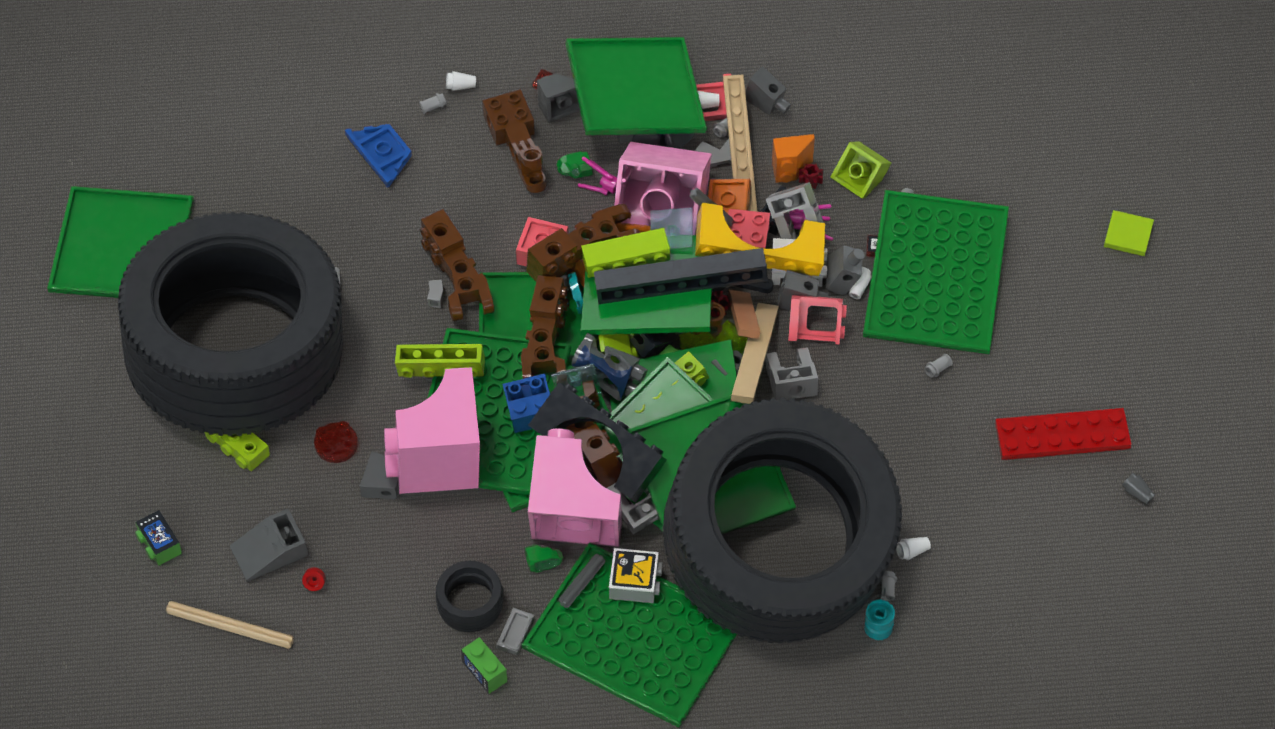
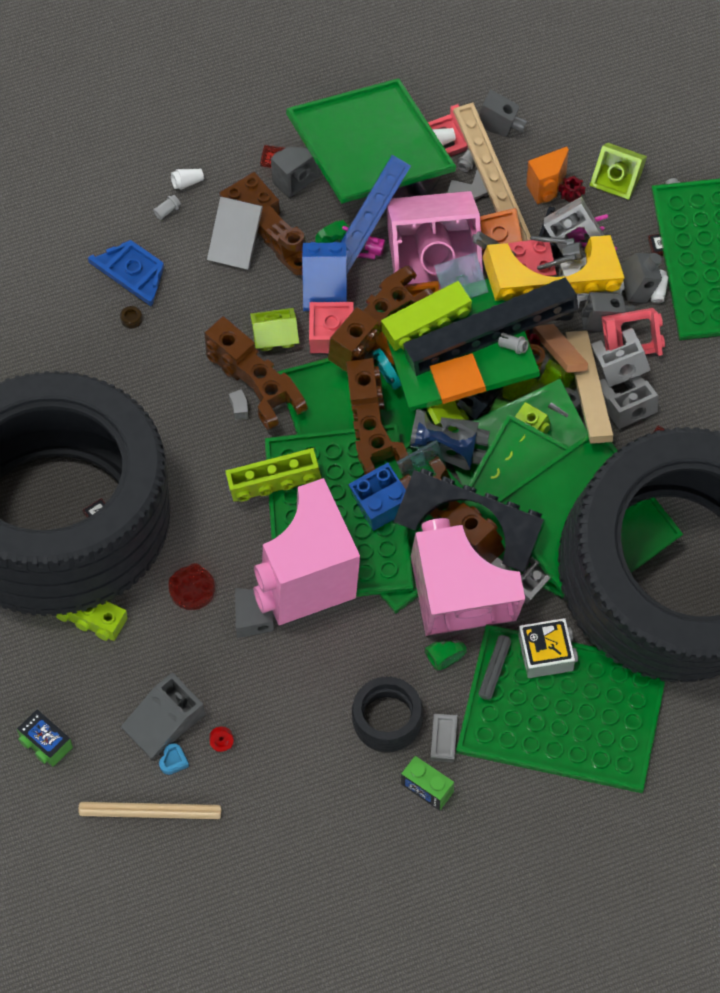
camera: 15 degrees left, 5 degrees up
(265, 587) = (173, 759): none -> dark azure tile
(366, 192) = (131, 317): none -> dark brown tile
(484, 139) = (235, 233): none -> light grey tile
(491, 234) = (274, 329): none -> lime slope
(551, 194) = (324, 273): none -> slope
(607, 152) = (374, 207): none -> blue tile
(633, 314) = (457, 378): none -> orange tile
(698, 297) = (517, 344): none -> light grey pin
(785, 230) = (571, 252): none -> dark grey plant
(806, 334) = (622, 362): none -> light grey brick

